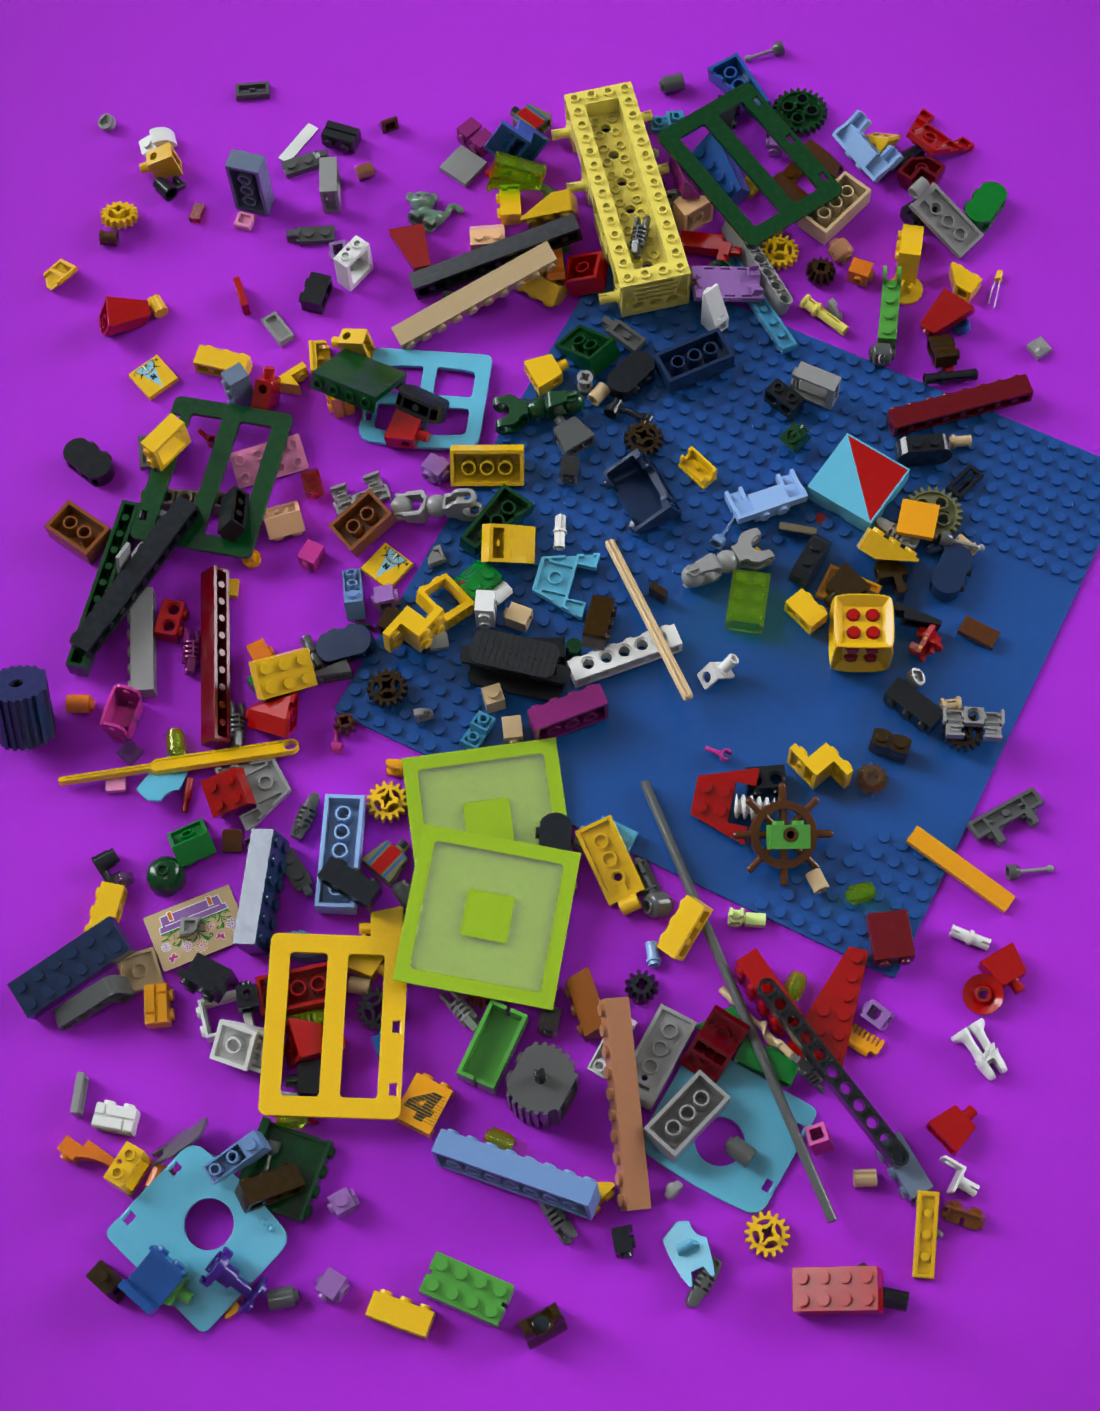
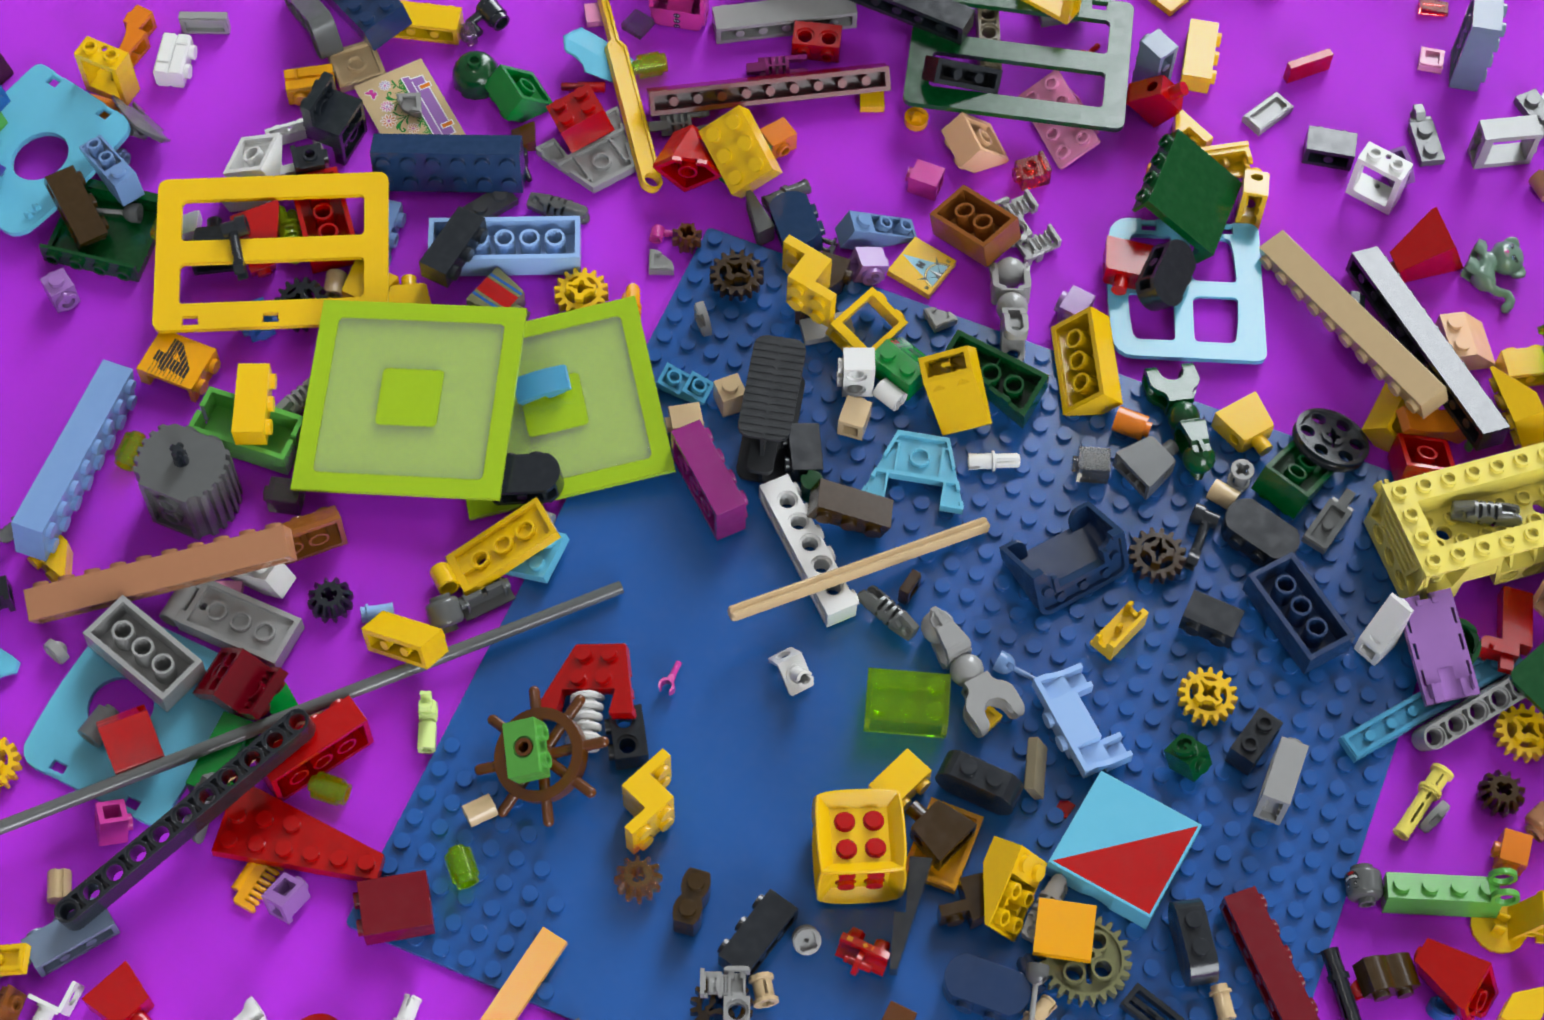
camera: 80 degrees right, 5 degrees down
(315, 1051) = (234, 230): none -> black brick
(362, 747) = (659, 264): none -> light grey tile
(474, 819) = (542, 383): none -> dark azure slope
(481, 1033) = (253, 404): none -> yellow brick
(538, 442) = (1131, 423): none -> orange brick
(559, 325) = (1323, 441): none -> black wedge
(676, 607) = (886, 610): none -> dark grey hinge
(693, 412) = (1211, 619): none -> black brick
(749, 422) = (1207, 691): none -> yellow gear
(759, 1123) = (130, 739): none -> red piece

